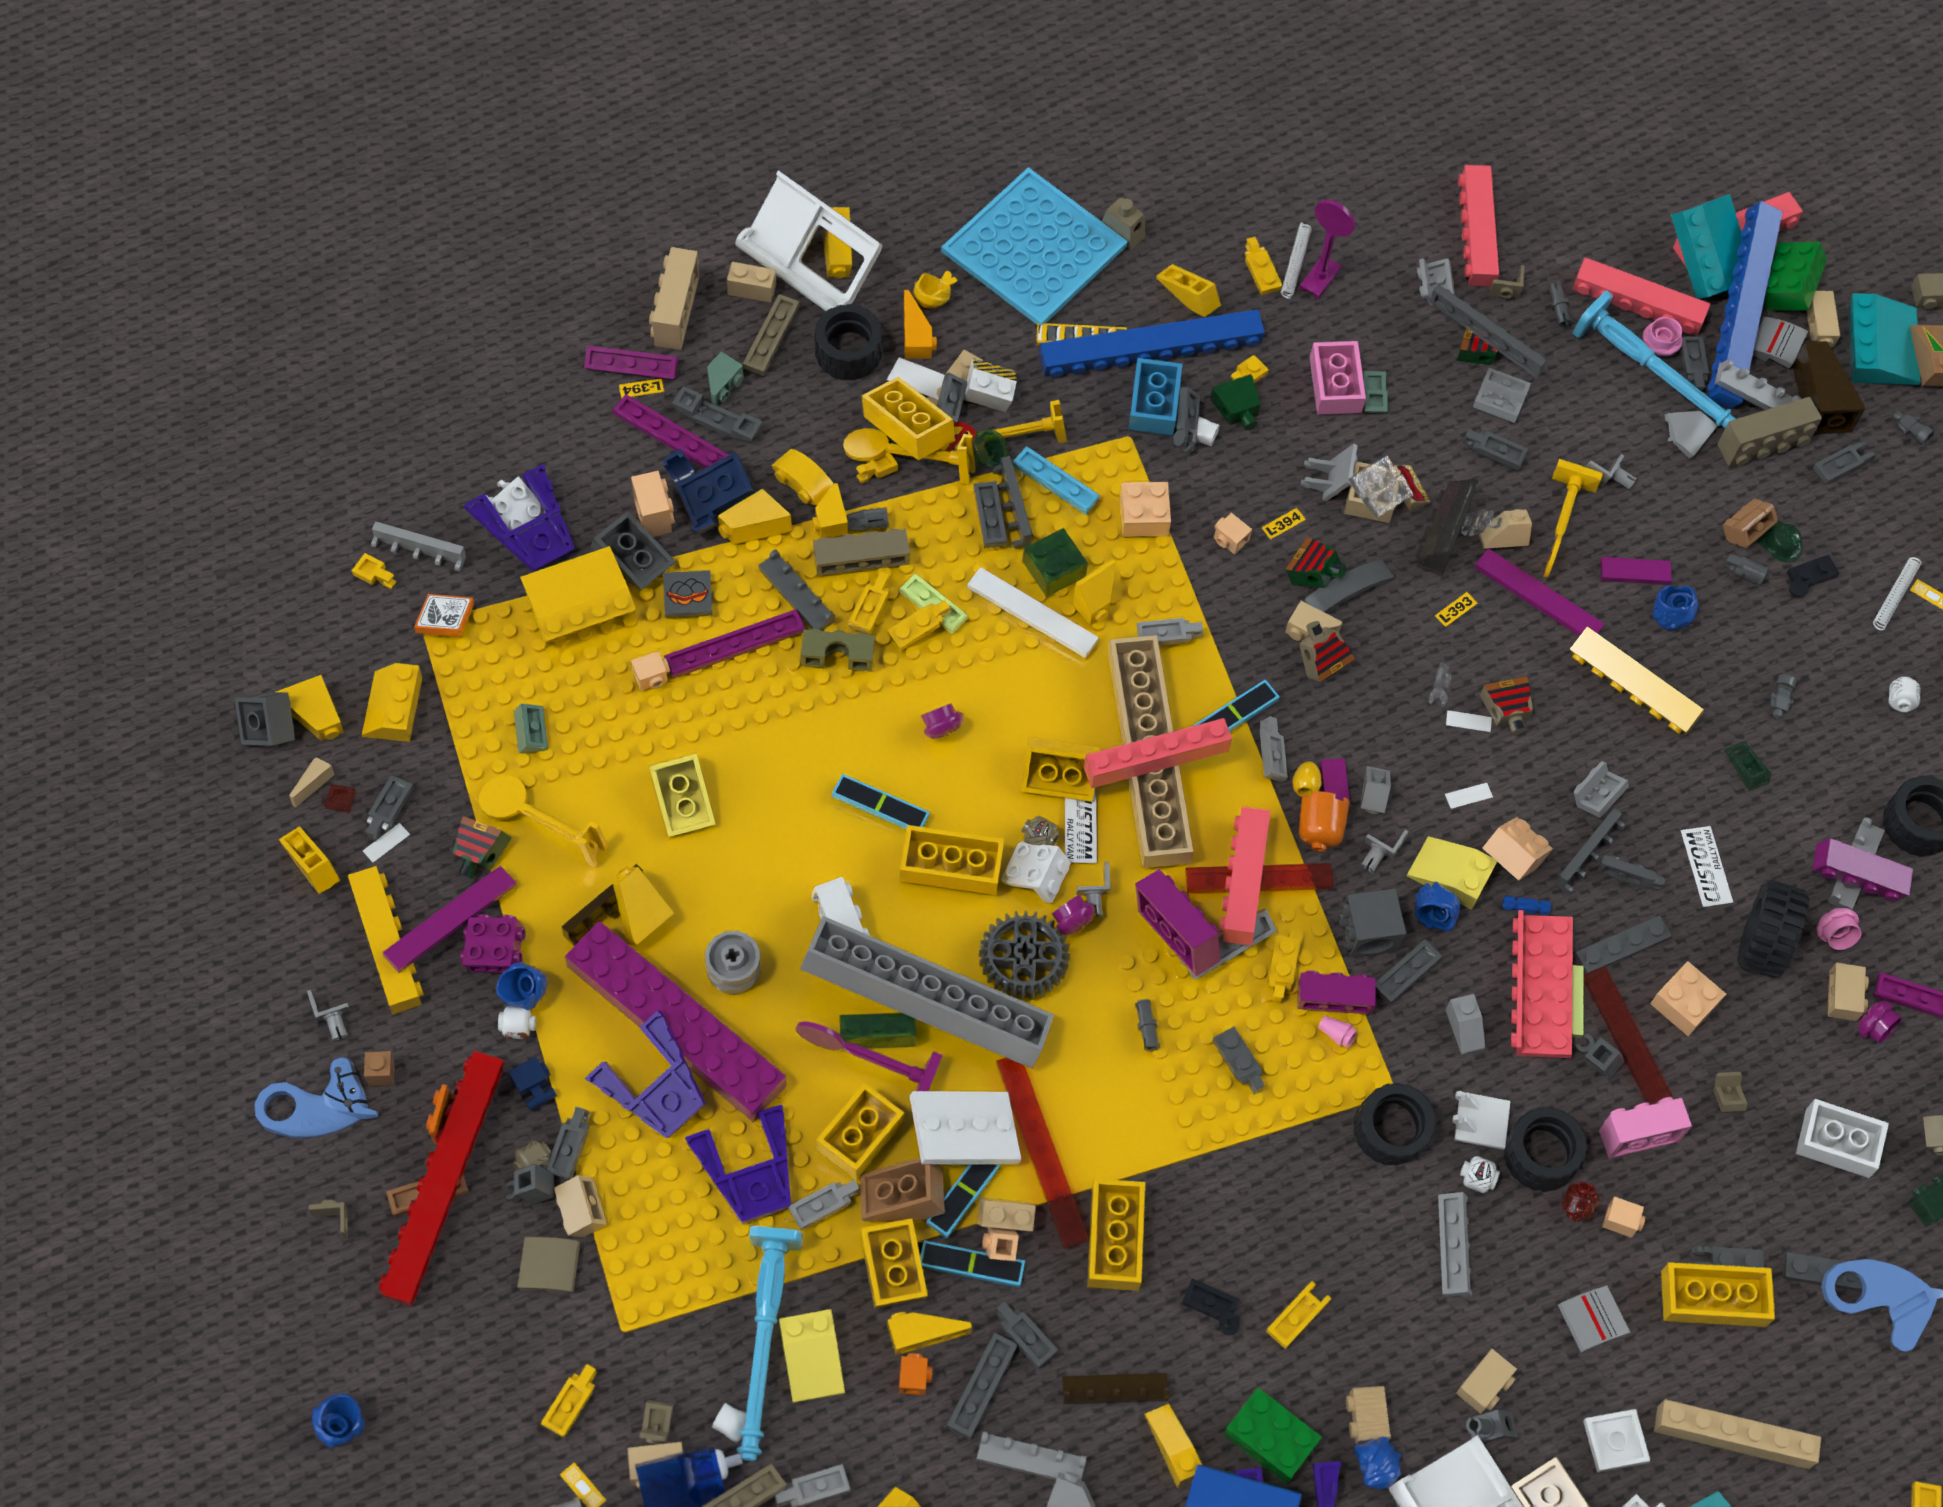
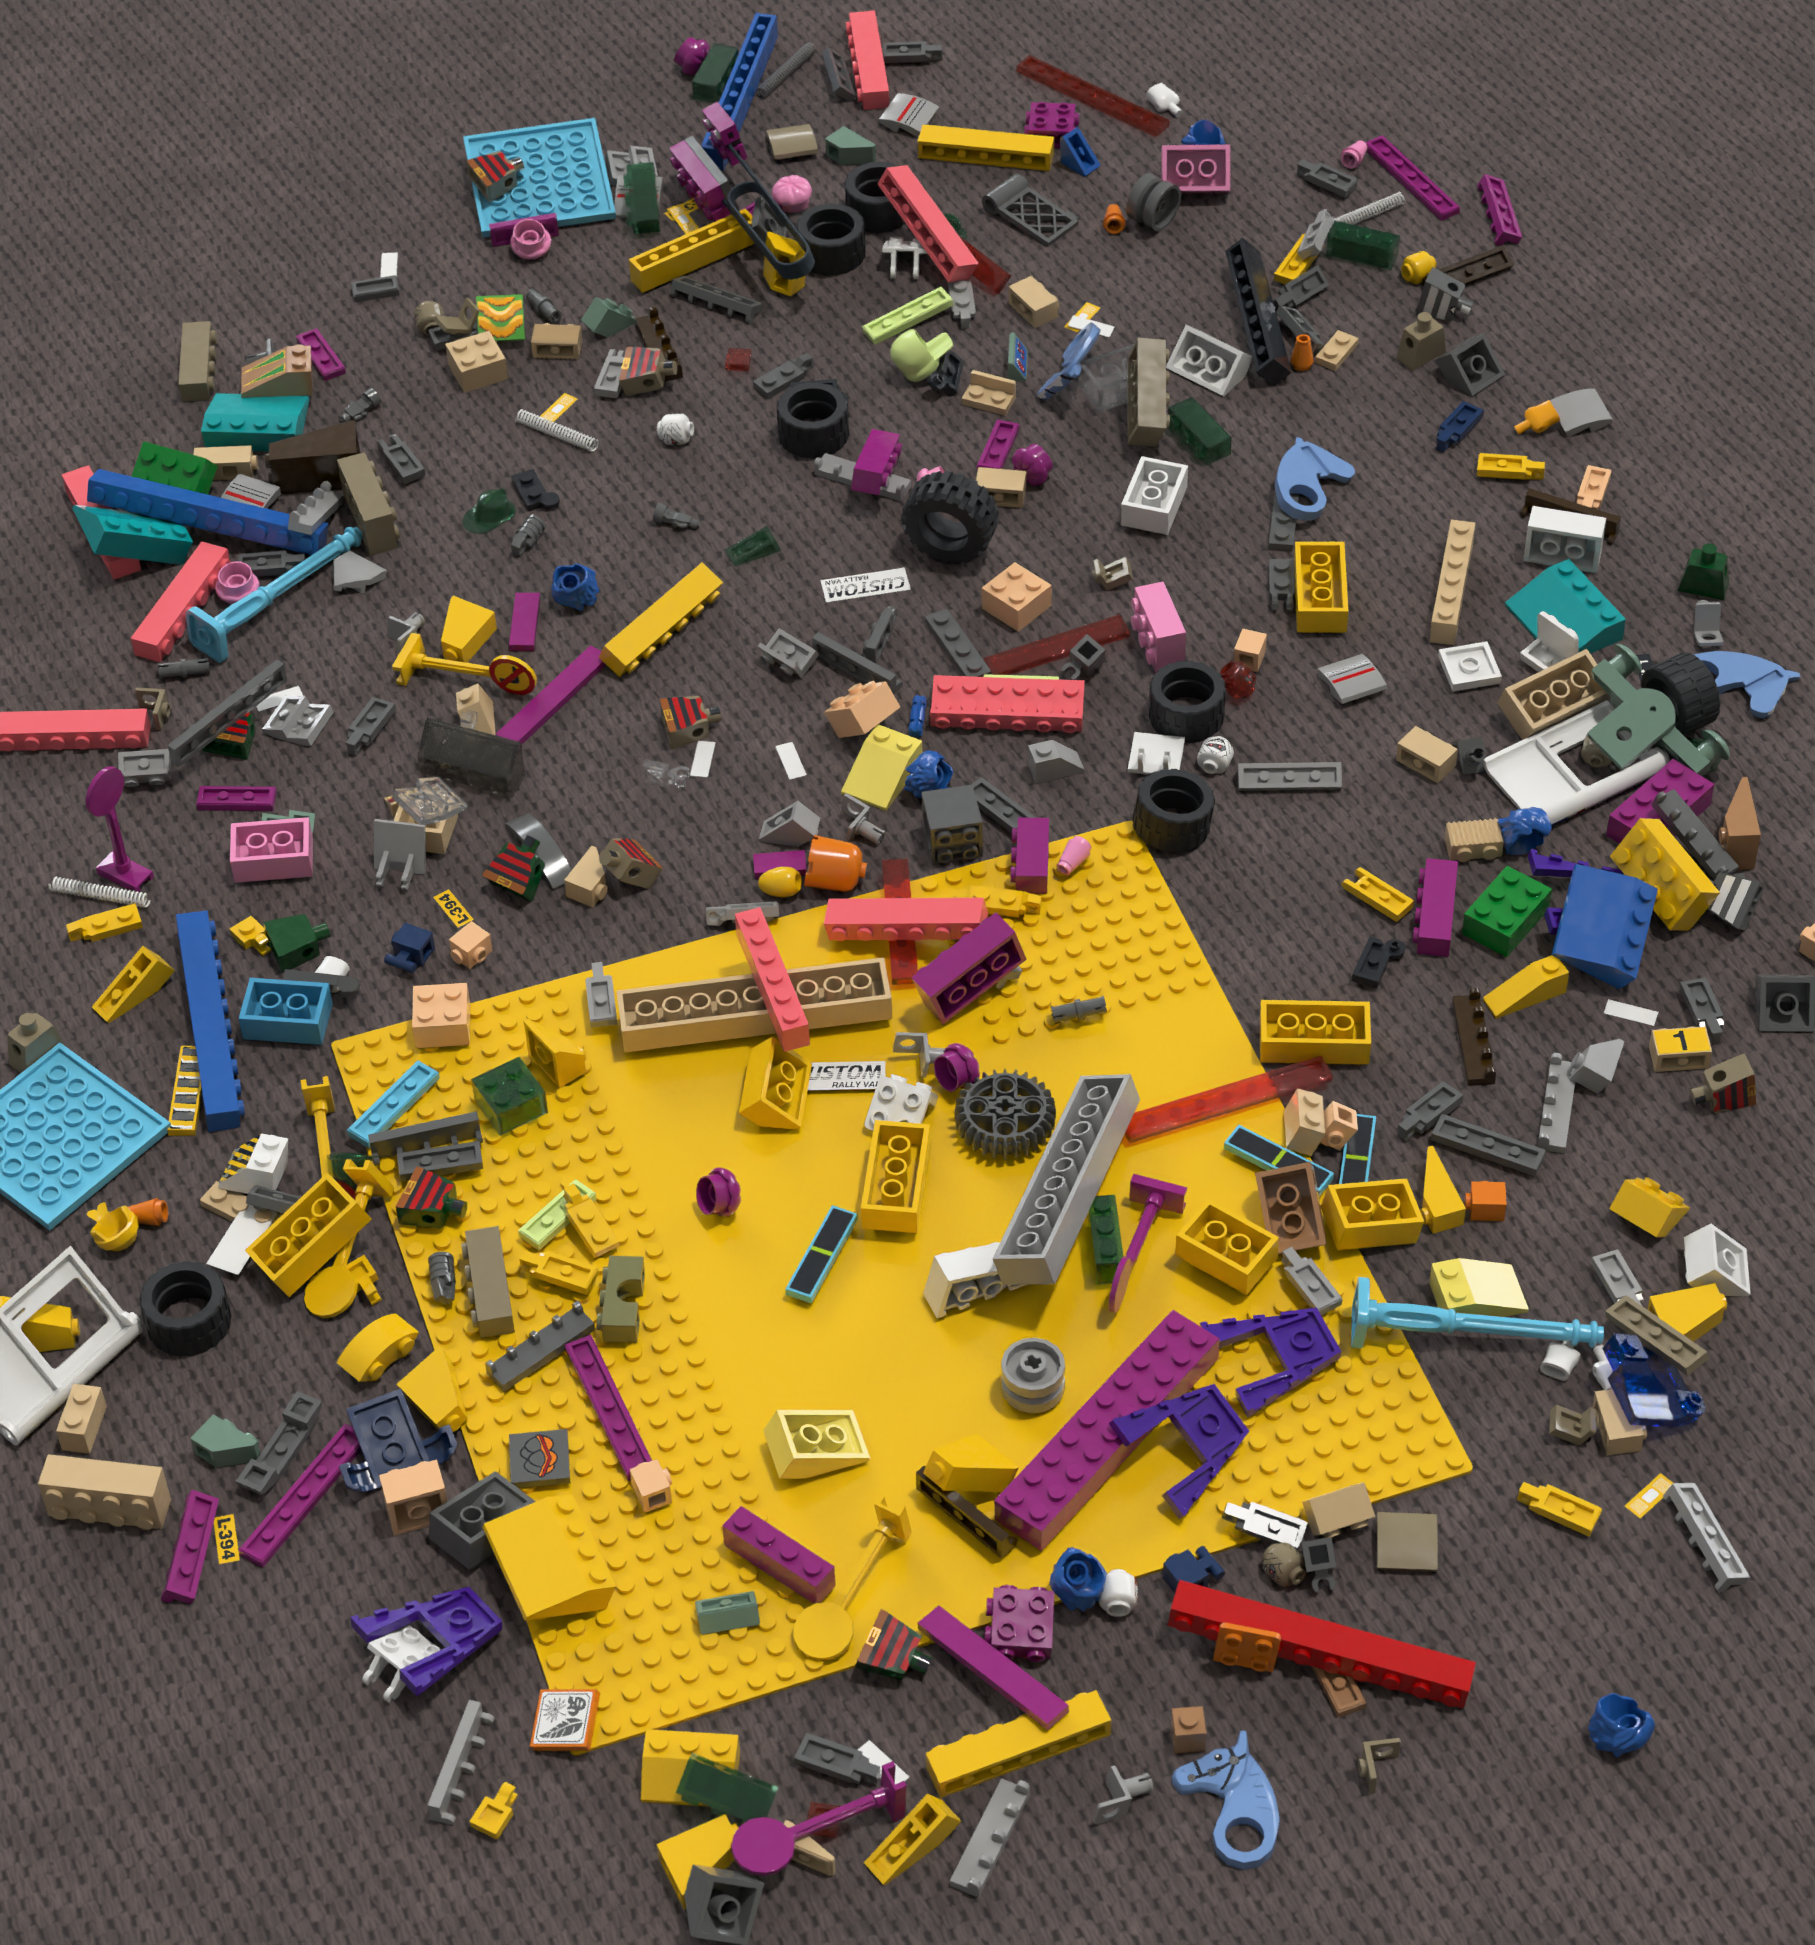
camera: 85 degrees left, 15 degrees down
(305, 747) = (767, 1845): none -> magenta piece
(307, 917) = (990, 1837): none -> light grey hinge
(360, 723) = (725, 1789): none -> clear green brick
(571, 762) = (779, 1555): none -> magenta brick
(771, 335) = (160, 1397): dark tan plate -> none
(830, 514) = (433, 1313): yellow slope -> none
(917, 331) = (164, 1246): light orange slope -> none
(947, 506) = (429, 1200): none -> torso
(952, 315) = (151, 1212): none -> orange cone
(964, 1127) = (1216, 1151): white plate -> none
(1032, 612) = (570, 1121): white tile -> none
(1040, 831) = (855, 1103): dark tan head -> none
(1231, 490) = (411, 948): none -> dark blue brick
(1239, 1059) = (1110, 936): dark grey hinge -> none
(1245, 706) = (702, 941): black tile -> none
(1279, 1368) = (1437, 907): none -> magenta brick
(1407, 354) = (236, 798): none -> magenta tile
(1456, 609) = (566, 766): yellow sticker -> none
(1536, 388) = (275, 699): none -> white sticker
(1615, 519) = (466, 629): none -> yellow slope
(1750, 523) = (474, 527): medium nougat brick -> none

